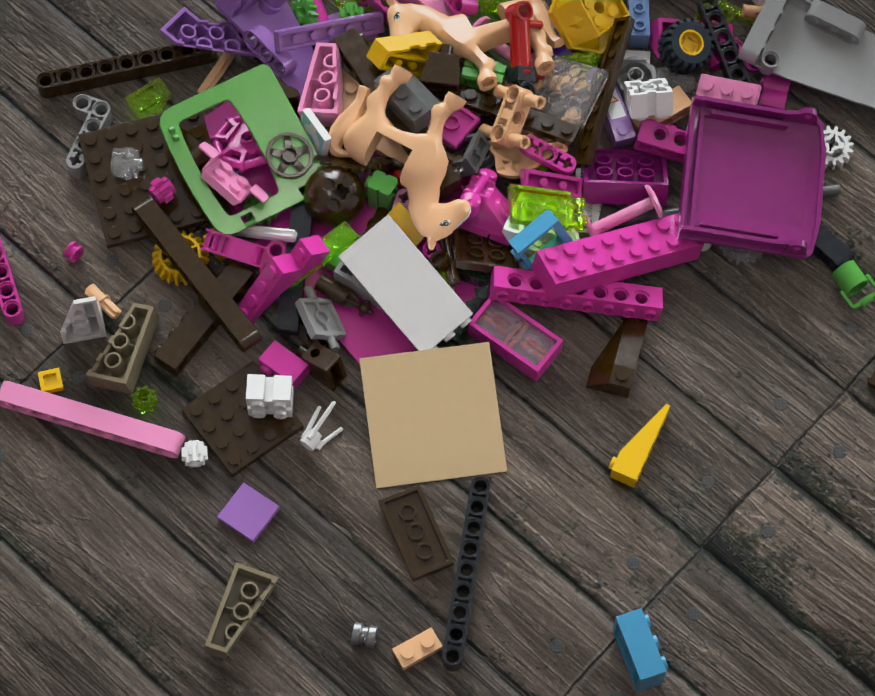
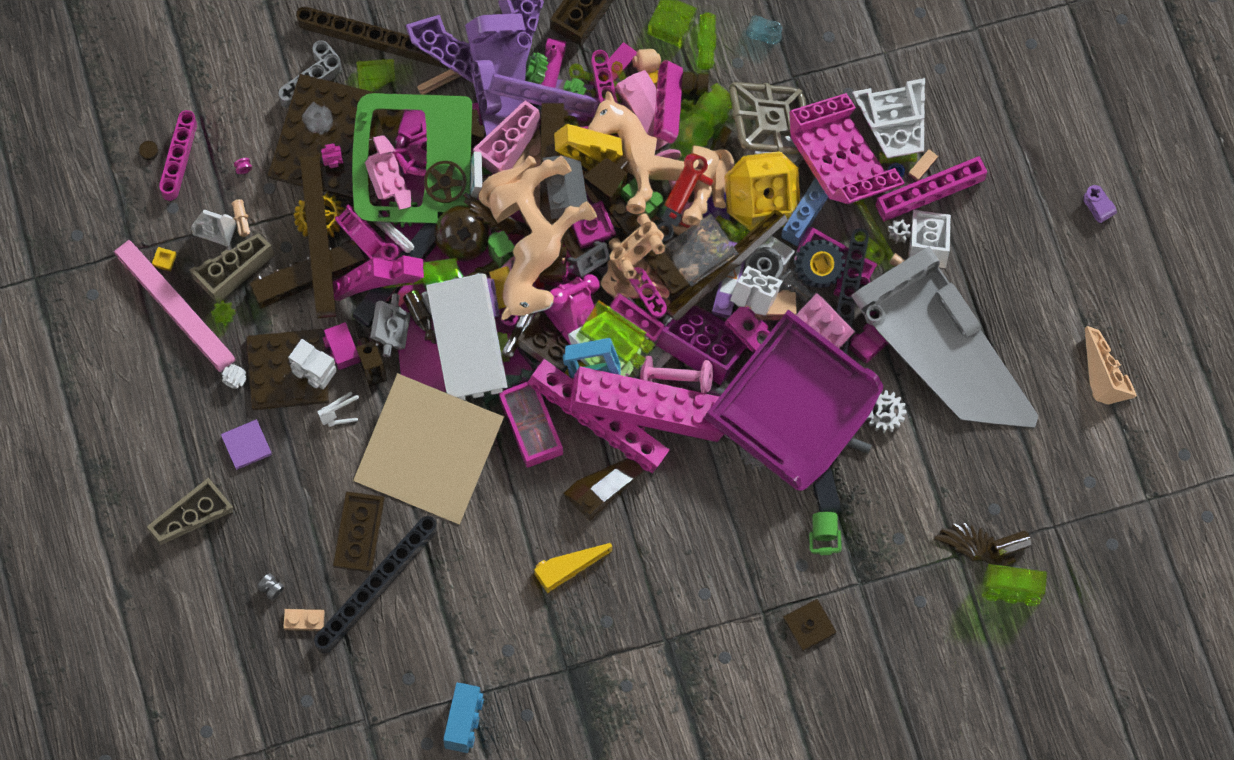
camera: 30 degrees right, 5 degrees up
(439, 260) = (507, 331): dark brown tile -> none

